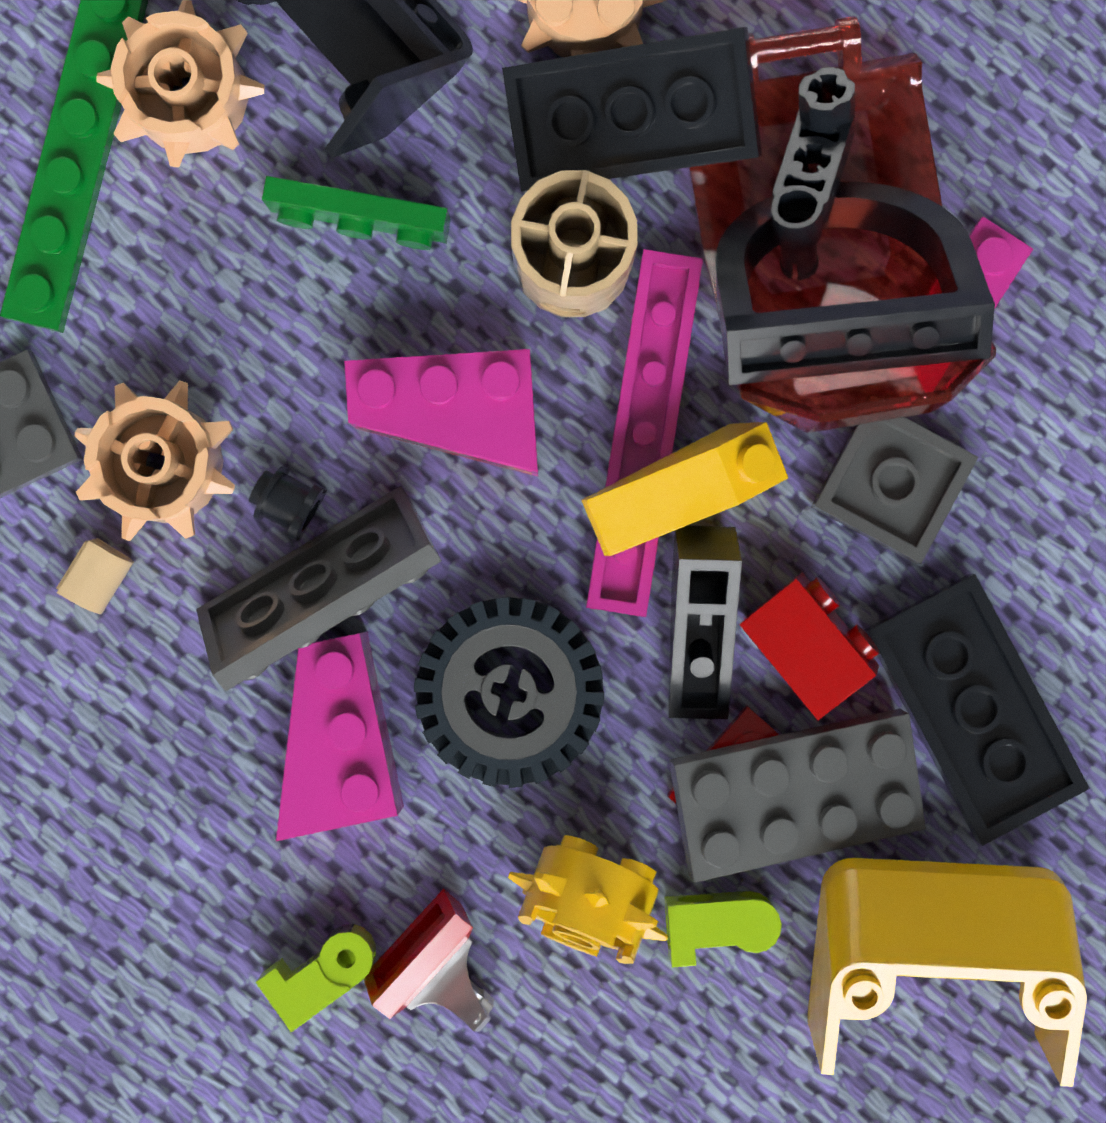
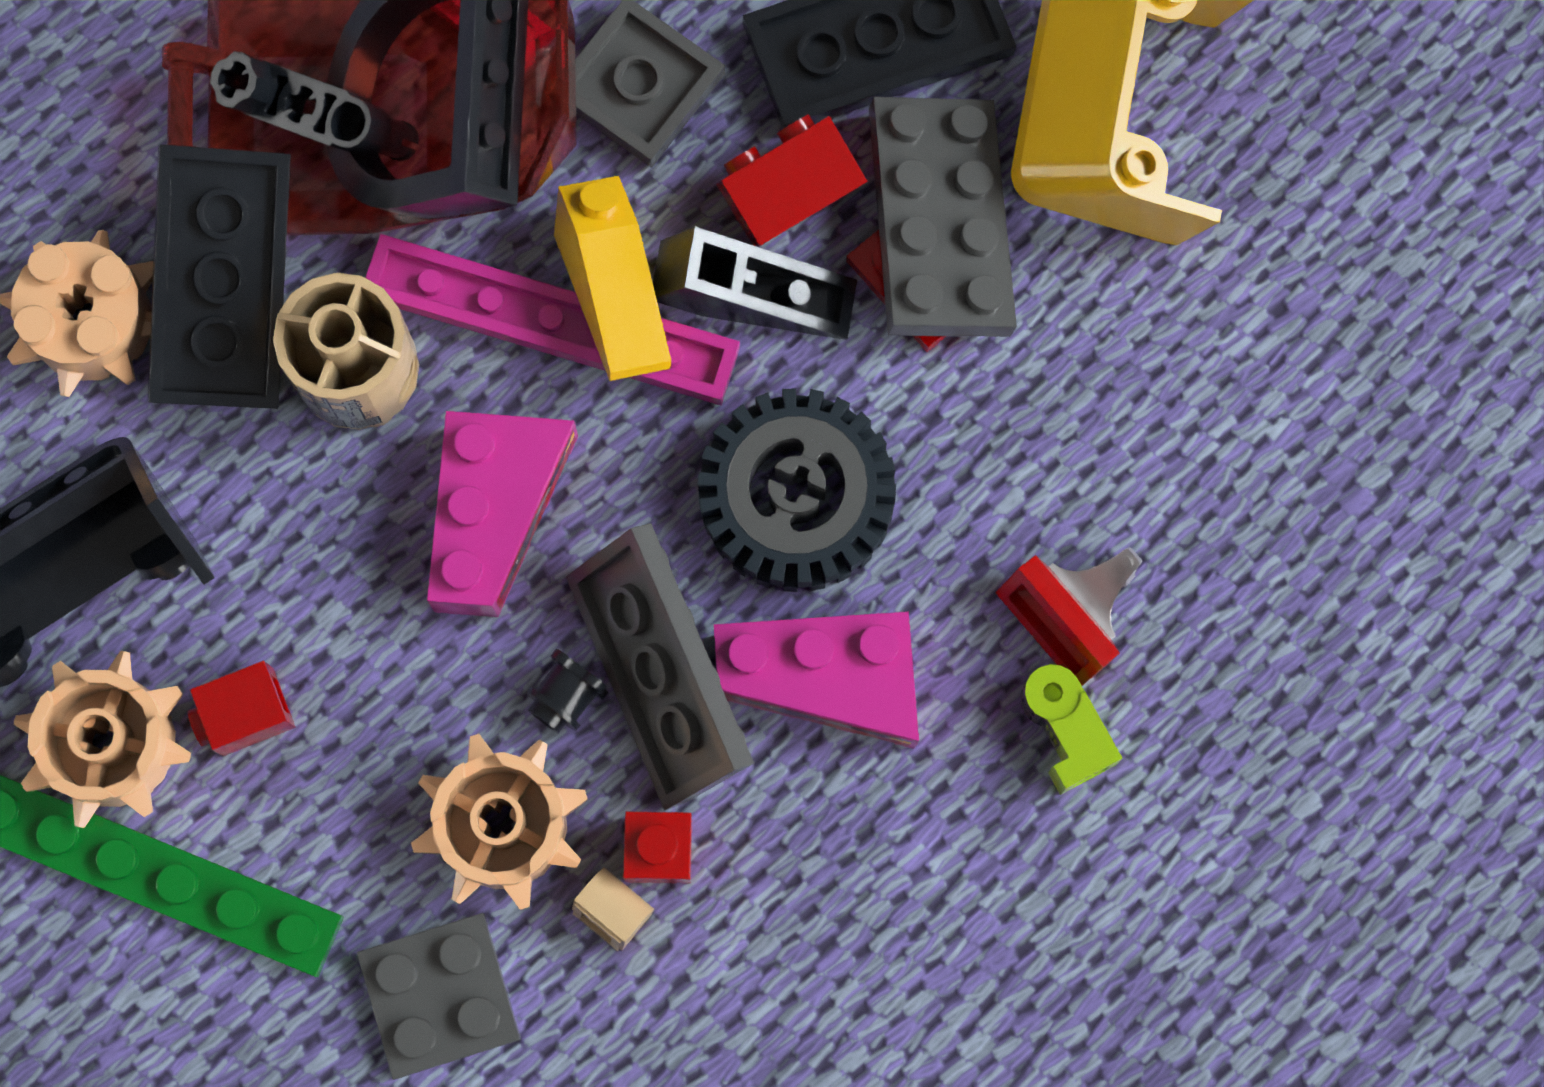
camera: 85 degrees left, 10 degrees down
(152, 609) = (657, 847): none -> red brick
(229, 206) = (240, 709): none -> red brick
(356, 212) = (272, 576): green plate -> none
(590, 899) = (1021, 430): yellow brick -> none
(719, 920) = (1060, 315): lime leg -> none

